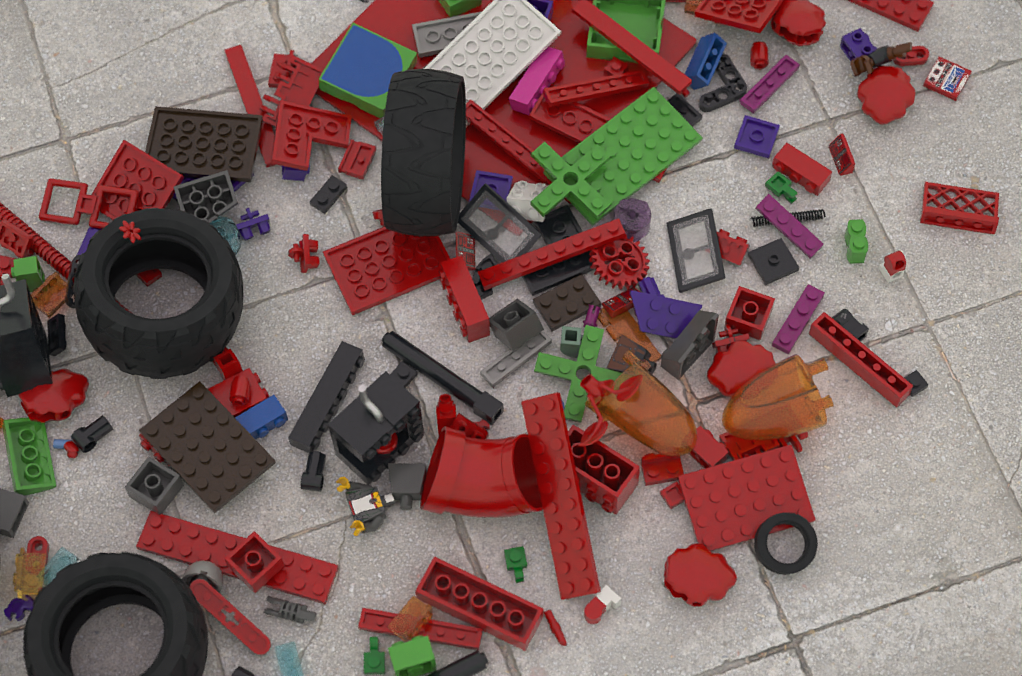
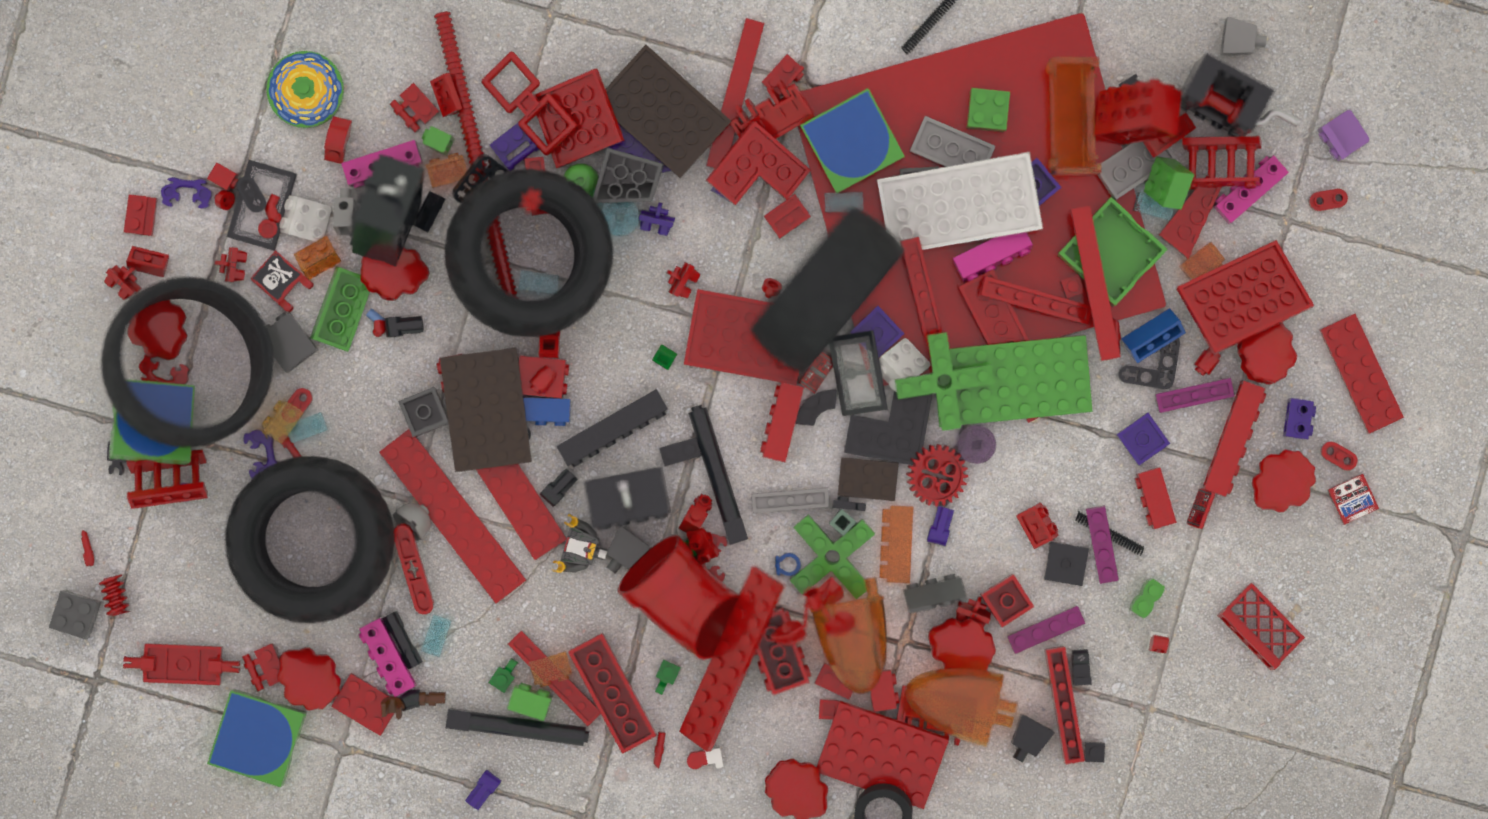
camera: 35 degrees right, 25 degrees up
(254, 562) = (459, 539): red brick -> none
(290, 610) = (464, 592): dark grey hinge -> none
(292, 509) = (523, 508): none -> red plate
(328, 194) = (740, 232): black plate -> none
(332, 317) = (664, 357): none -> green plate
(515, 324) = (807, 475): dark grey brick -> none
(551, 254) = (883, 433): red plate -> none
(557, 328) = (843, 503): none -> black plate
(591, 318) = (878, 508): magenta pin -> none
(619, 303) = (913, 513): slope -> none
(623, 345) = (883, 568): torso -> none
(662, 314) = (935, 551): dark purple wing -> none
(686, 110) = (1099, 370): black plate -> none
(695, 250) = (1007, 510): clear door -> none
(781, 185) = (1125, 499): green plate -> none
(823, 91) = (1233, 438): none -> red brick
(853, 404) = (1029, 737): none -> black torso
(879, 57) = (1303, 445): reddish brown piece -> none

